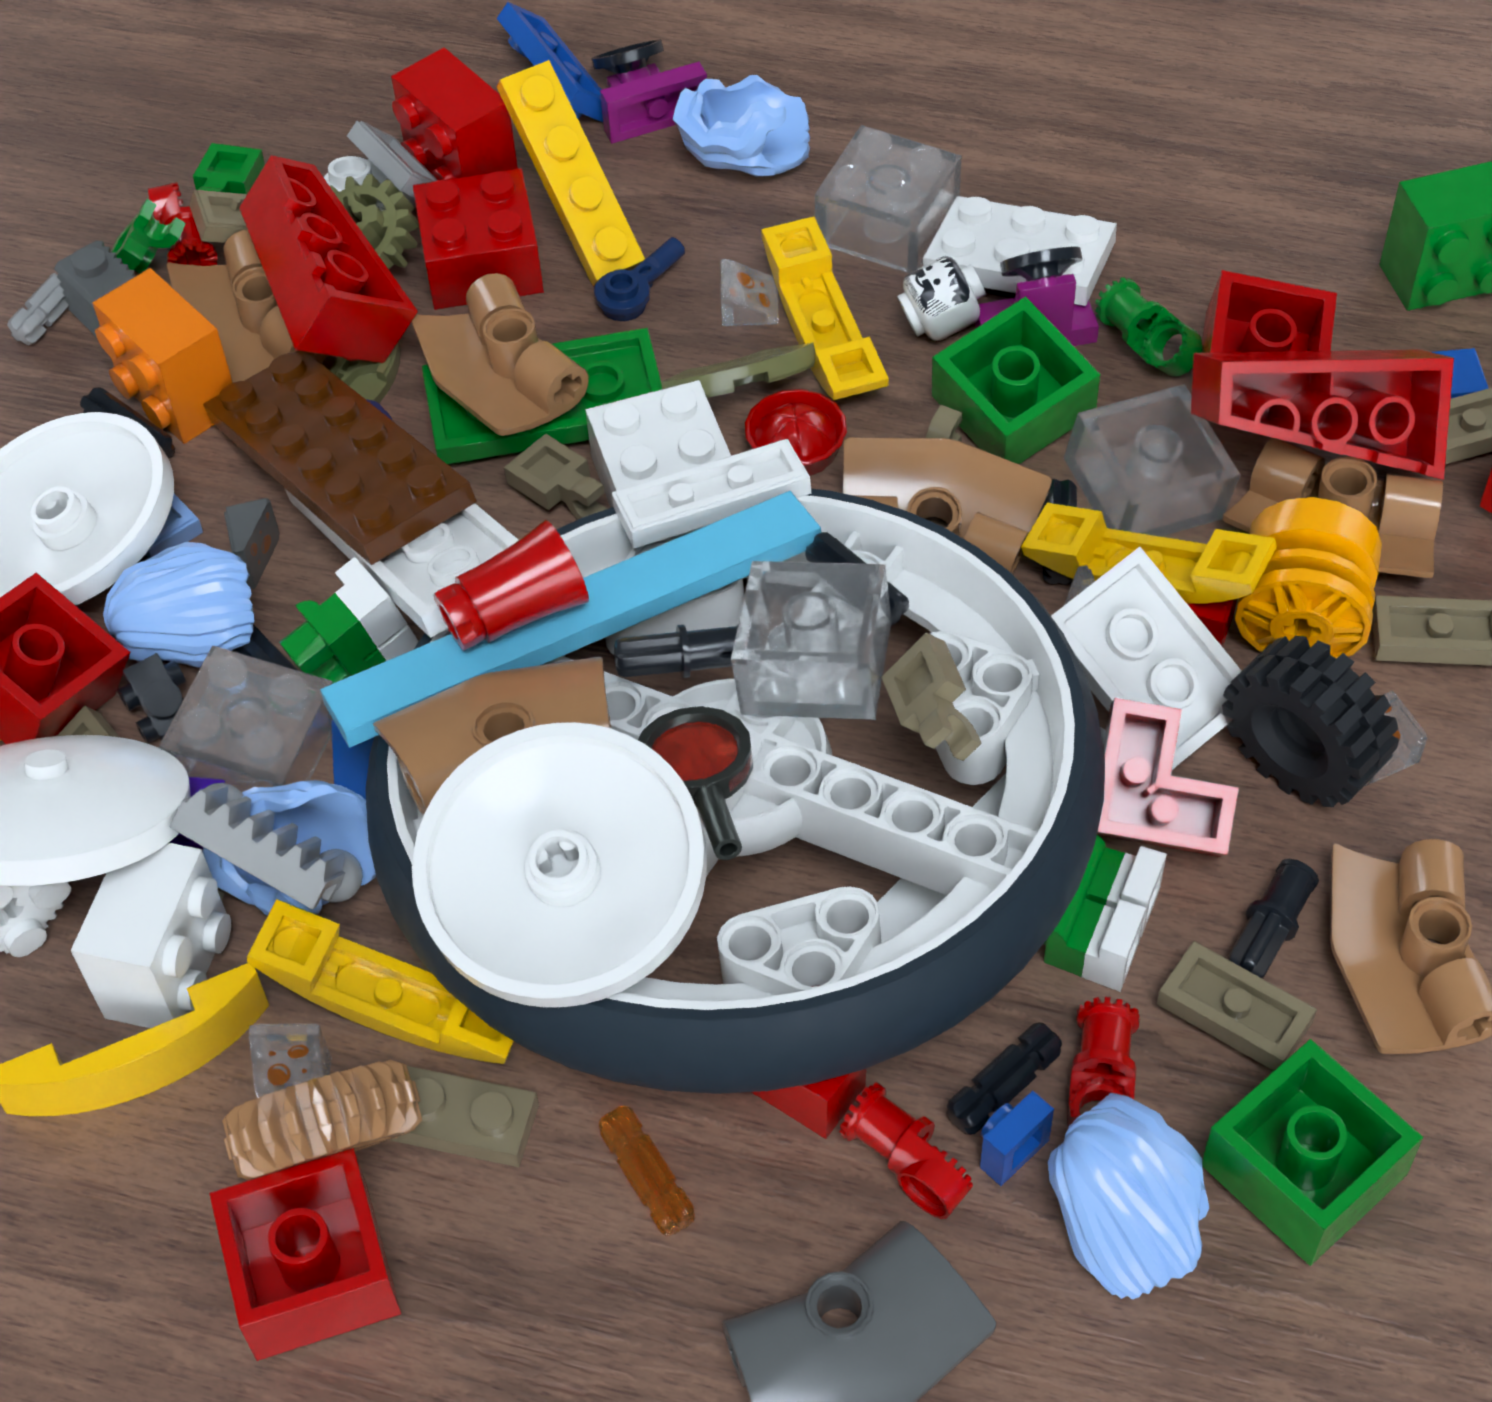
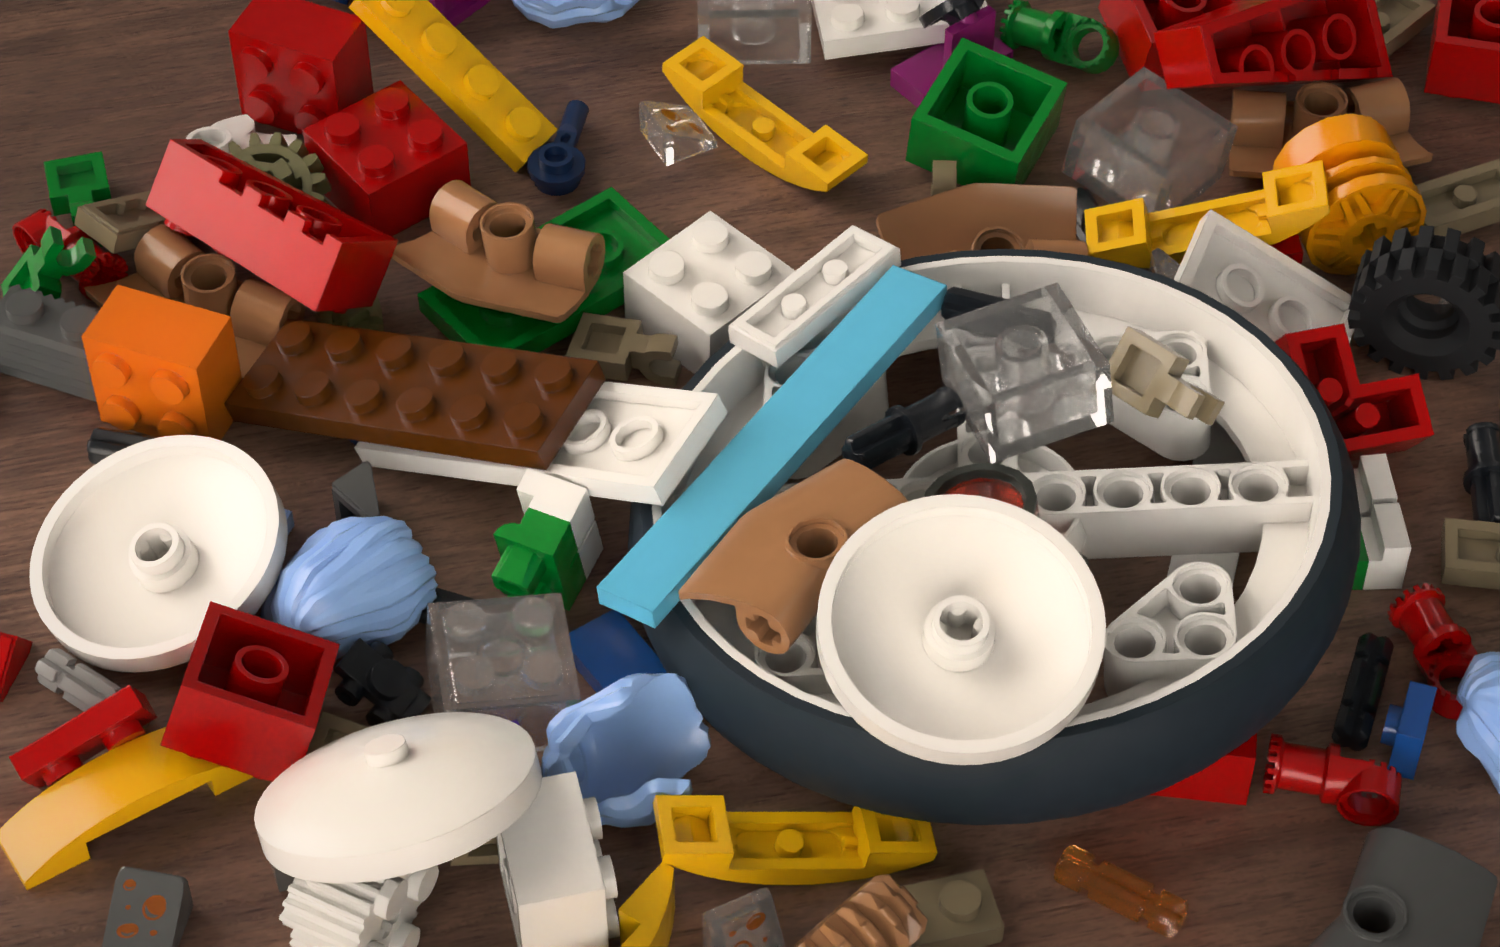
camera: 30 degrees left, 5 degrees down
(222, 823) = (613, 747): light grey gear -> none
(390, 157) = (251, 114): light grey tile -> none
(512, 589) = (731, 426): red plant -> none
(760, 366) = (734, 187): olive tile -> none
(804, 418) = (803, 224): red hat -> none
(941, 298) = (862, 71): white head -> none

